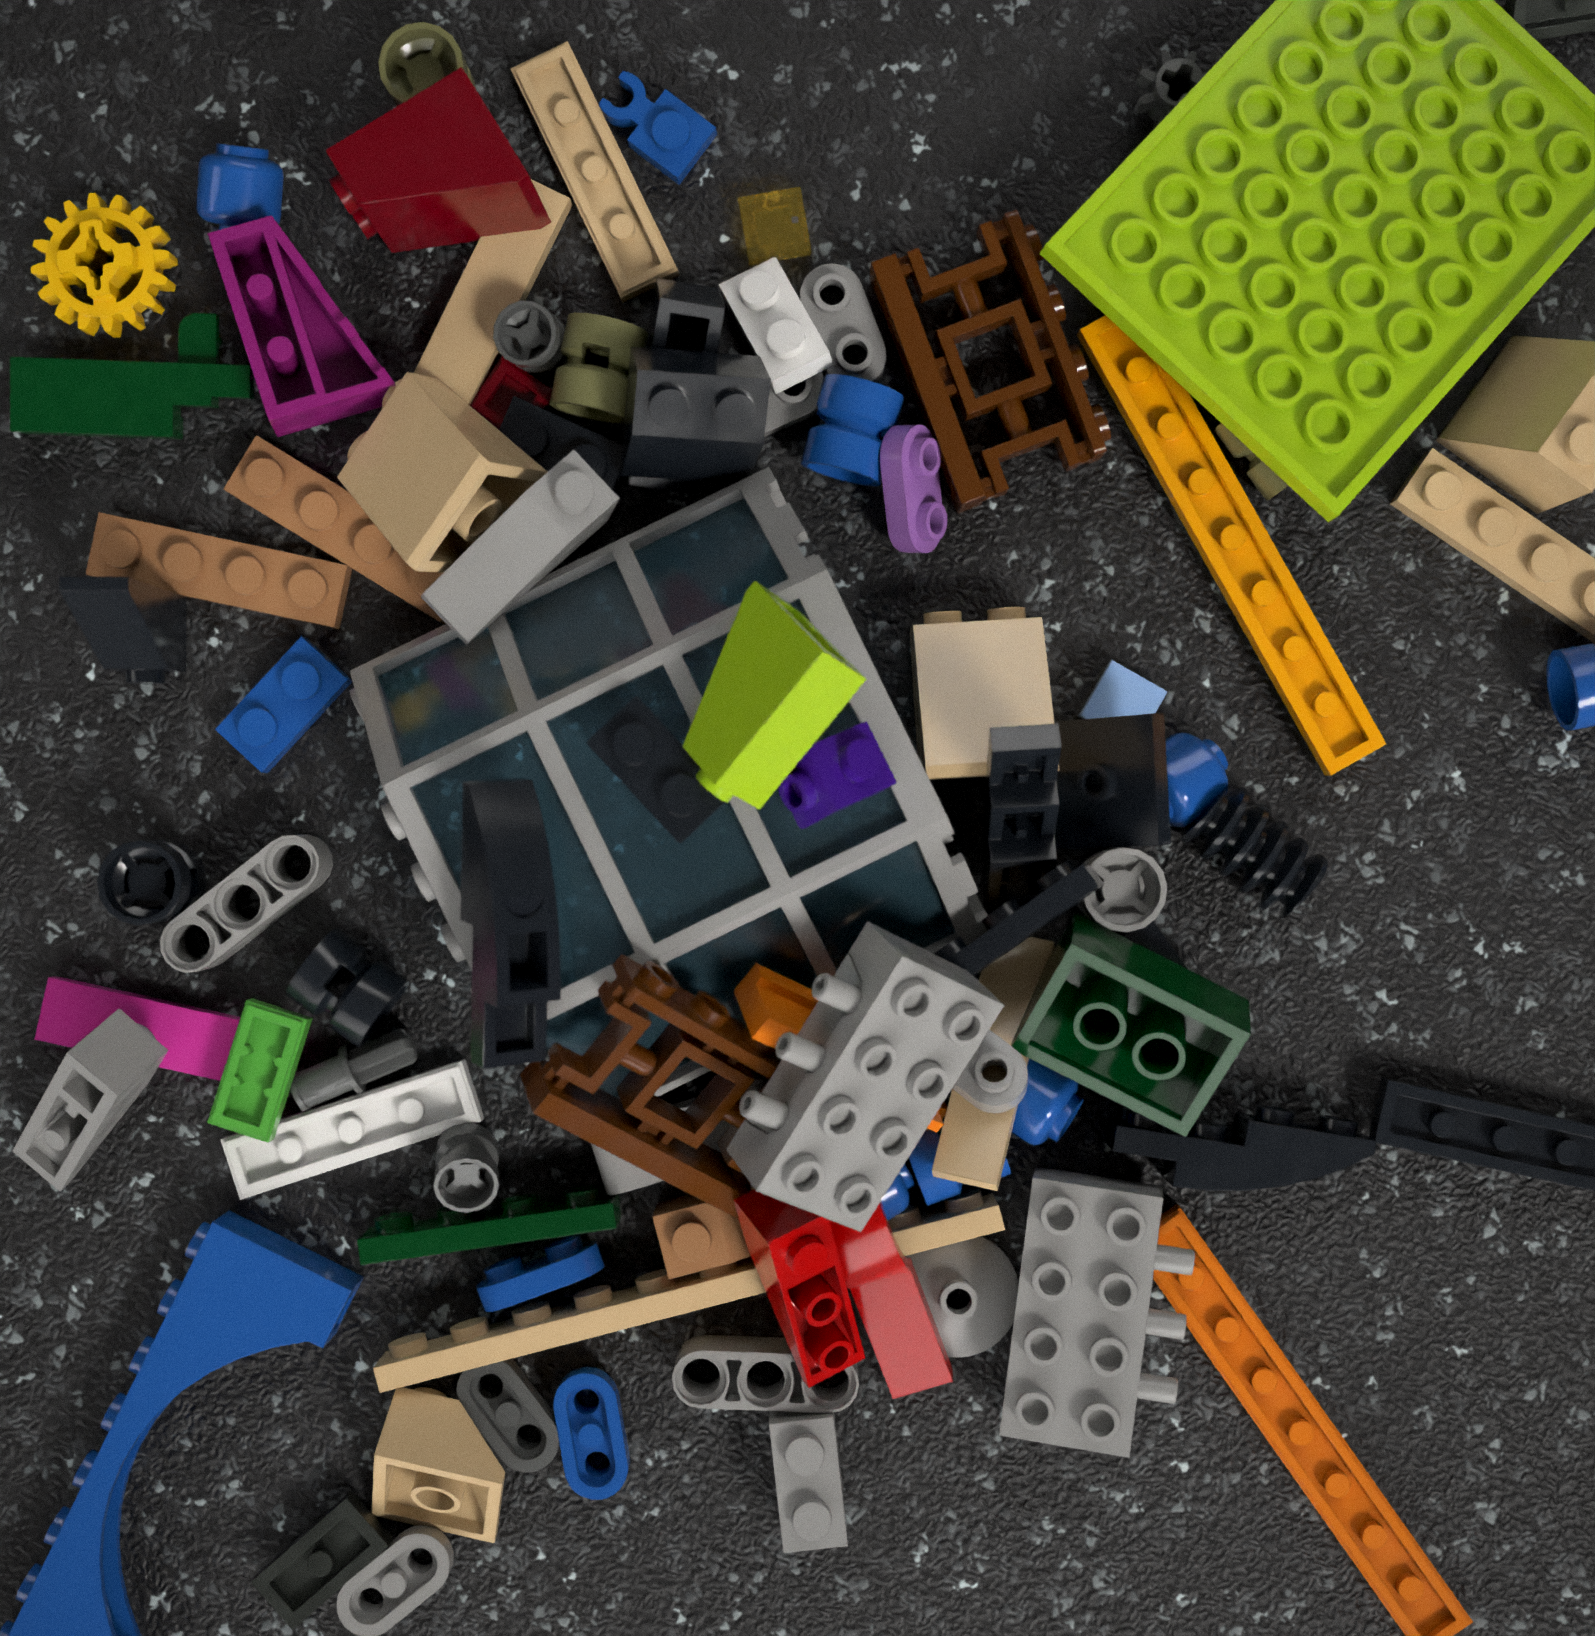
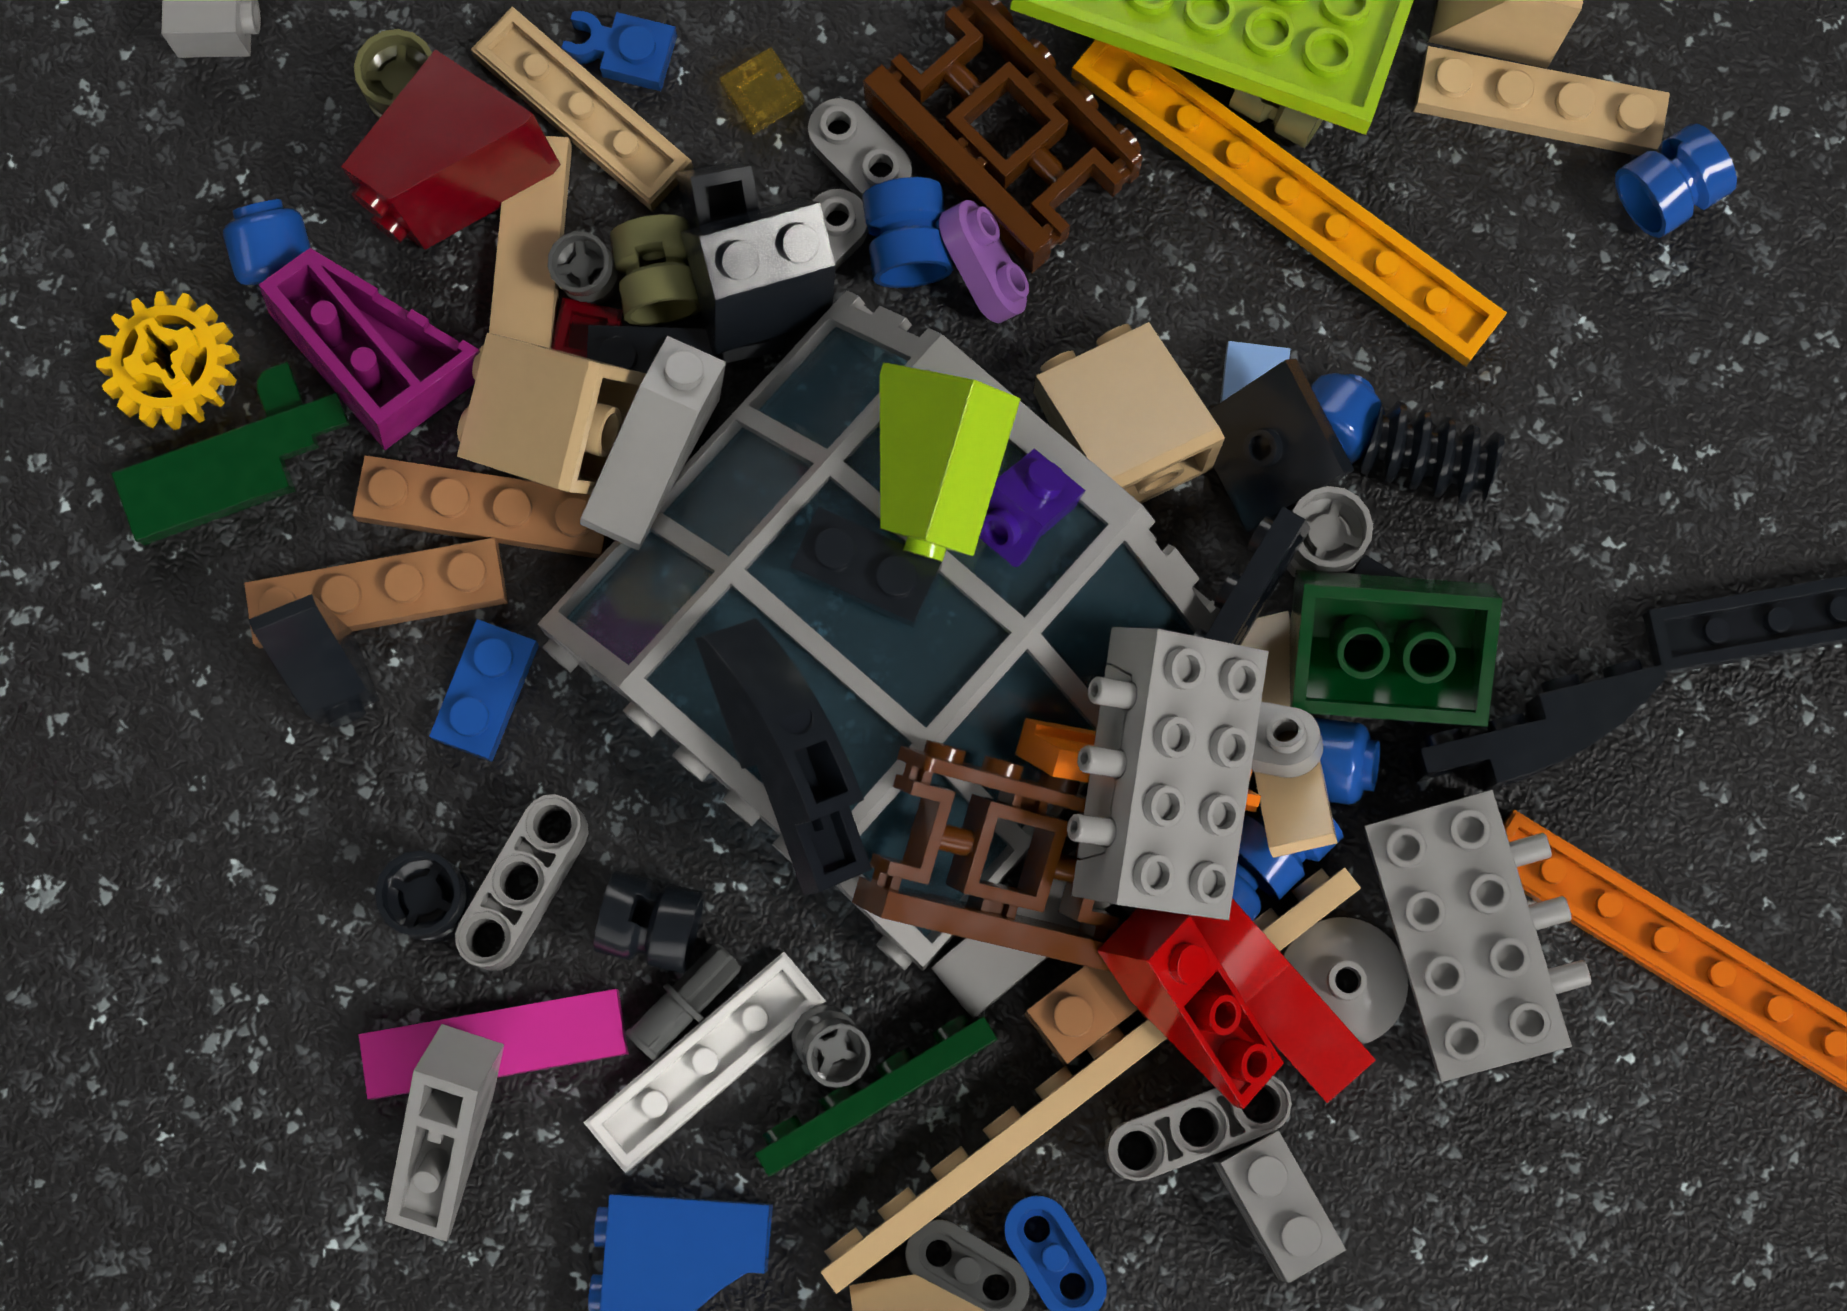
camera: 20 degrees left, 10 degrees down
(259, 1070) = (597, 1032): bright green plate -> none
(514, 1282) = (960, 1100): blue plate -> none
(776, 324) = (799, 167): white plate -> none
(1020, 812) = (1204, 486): black slope -> none

